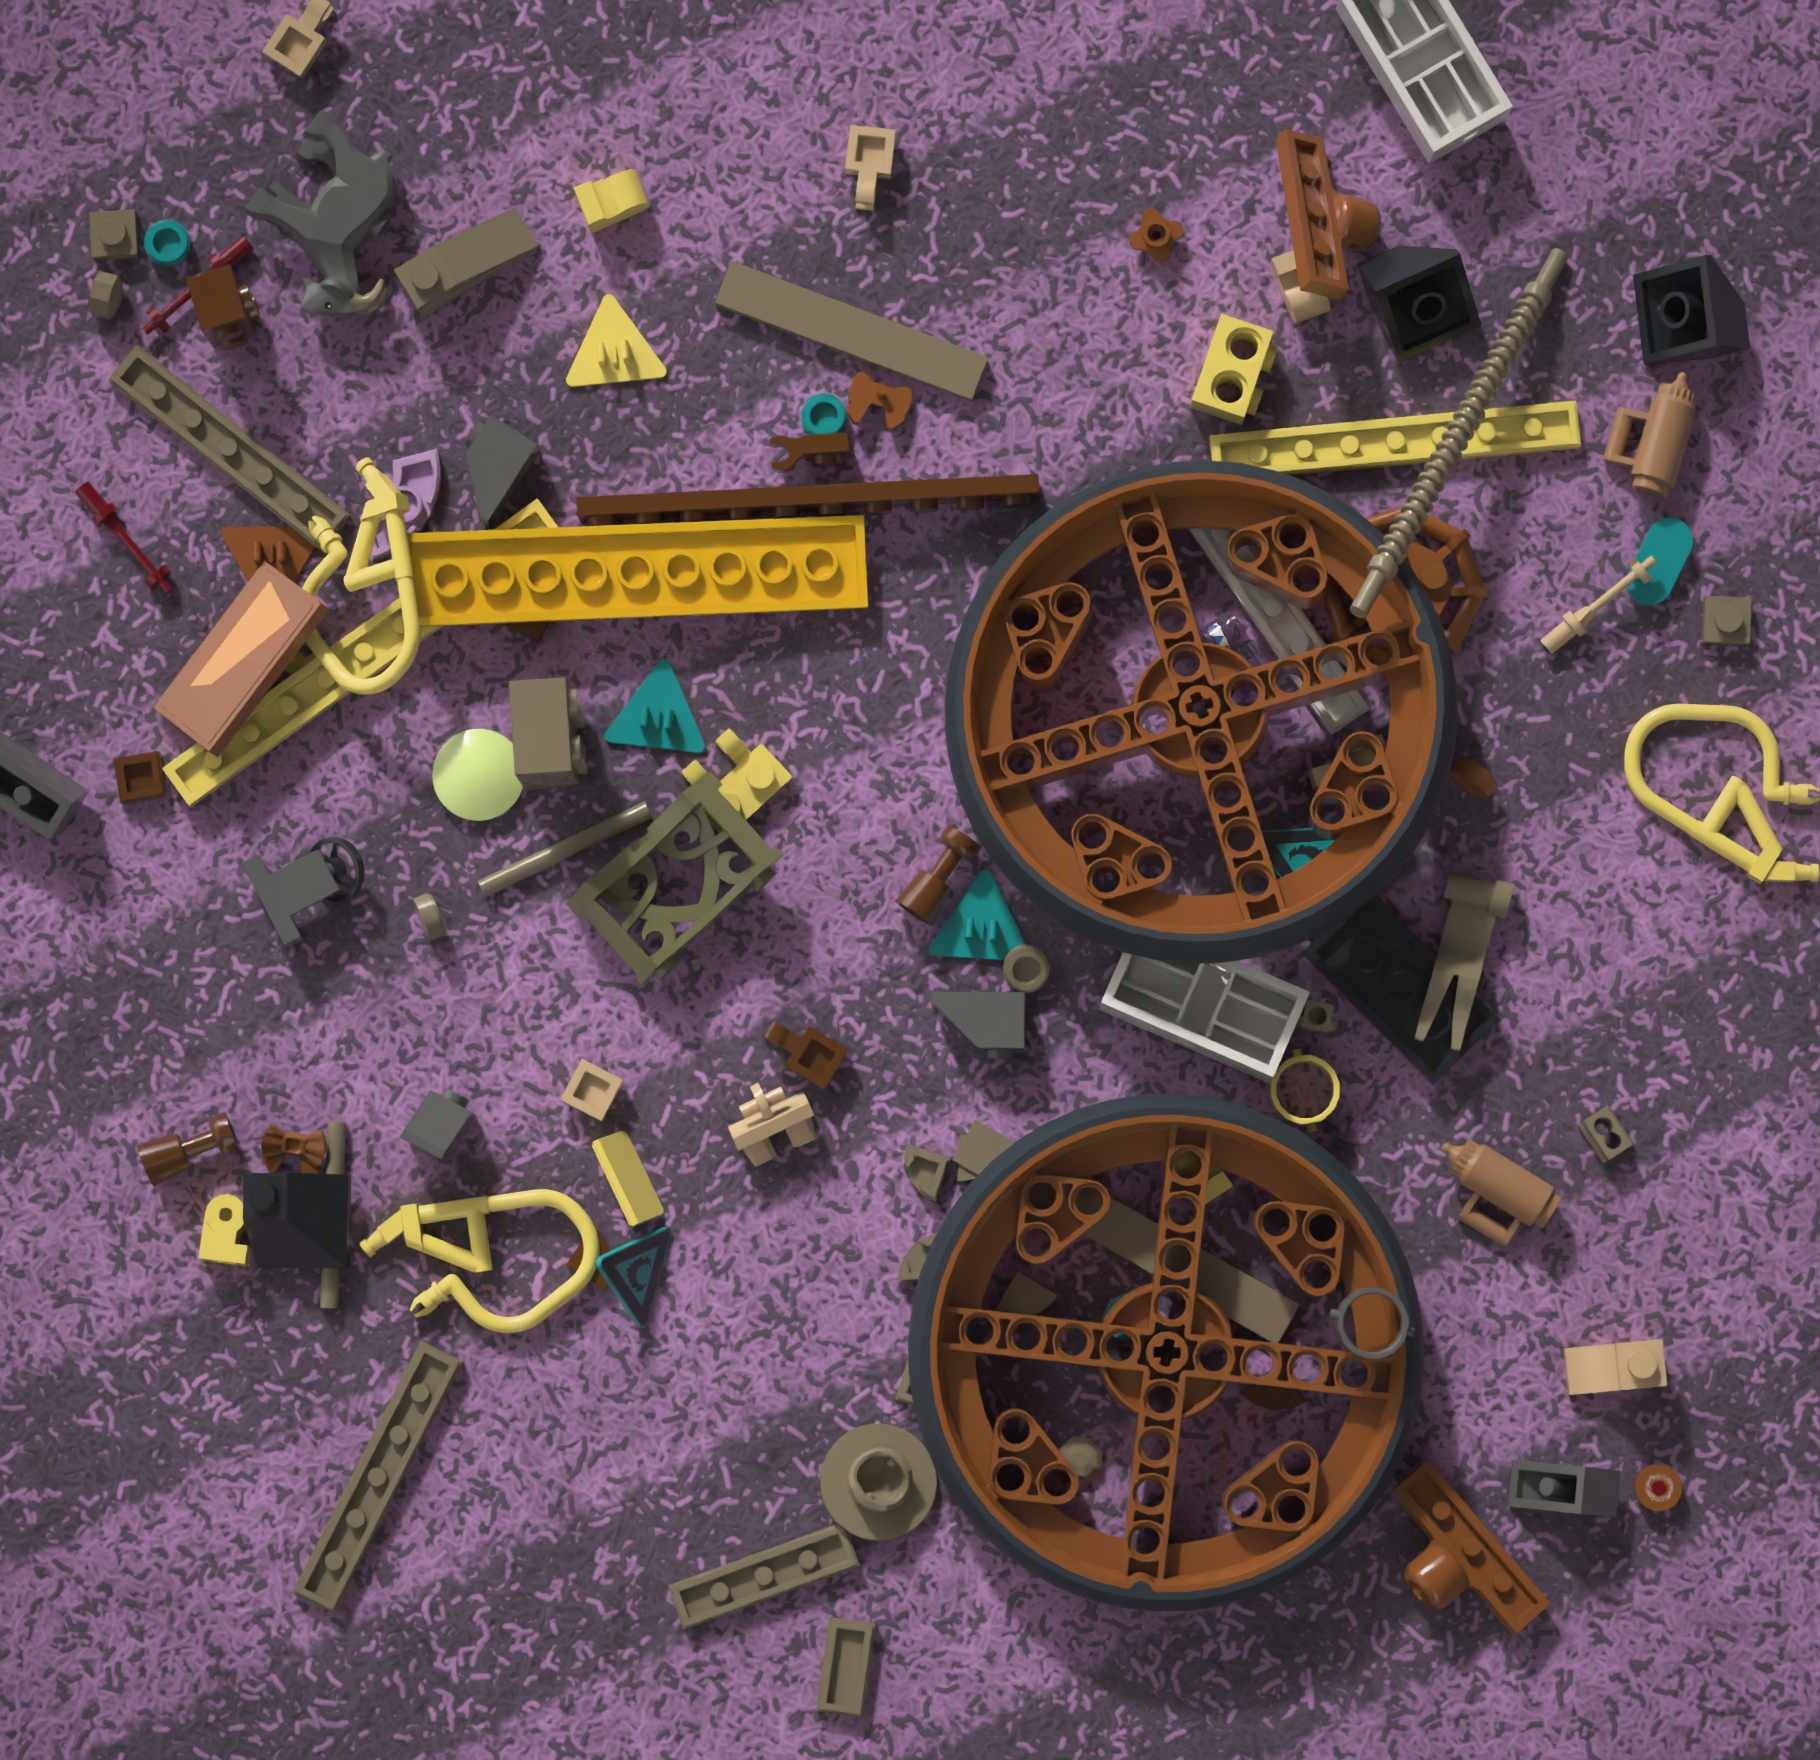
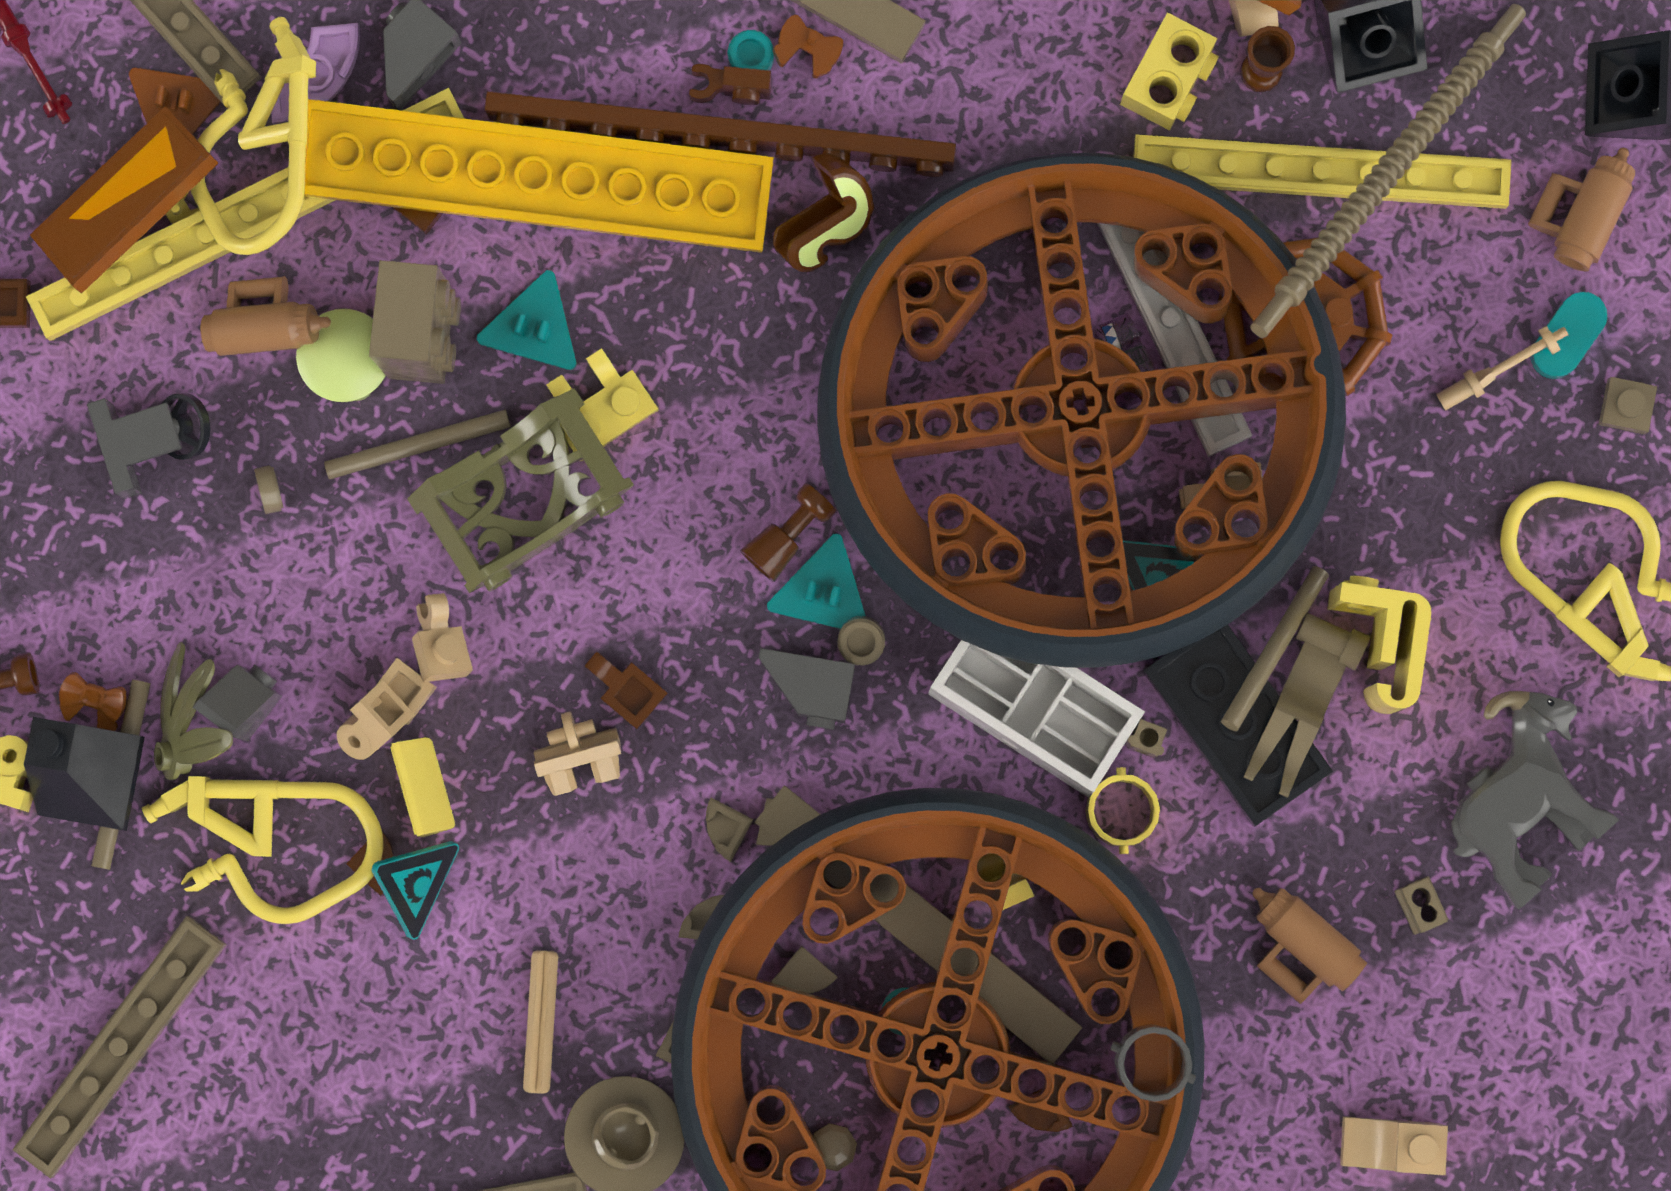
camera: 10 degrees right, 0 degrees up
(384, 1179) = (182, 748): none -> olive plant
(394, 760) = (263, 326): none -> medium nougat piece
(571, 1124) = (373, 722): none -> tan leg
(619, 1042) = (438, 648): none -> tan plate
(779, 1385) = (540, 1022): none -> tan axle
(928, 568) = (829, 221): none -> reddish brown animal
(1324, 343) = (1268, 54): none -> reddish brown piece
(1424, 910) = (1274, 648): none -> dark tan bar
(1473, 778) = (1346, 523): dark orange tile -> none
(1501, 848) = (1364, 597): none -> light yellow piece
(1683, 1010) = (1522, 792): none -> dark grey animal

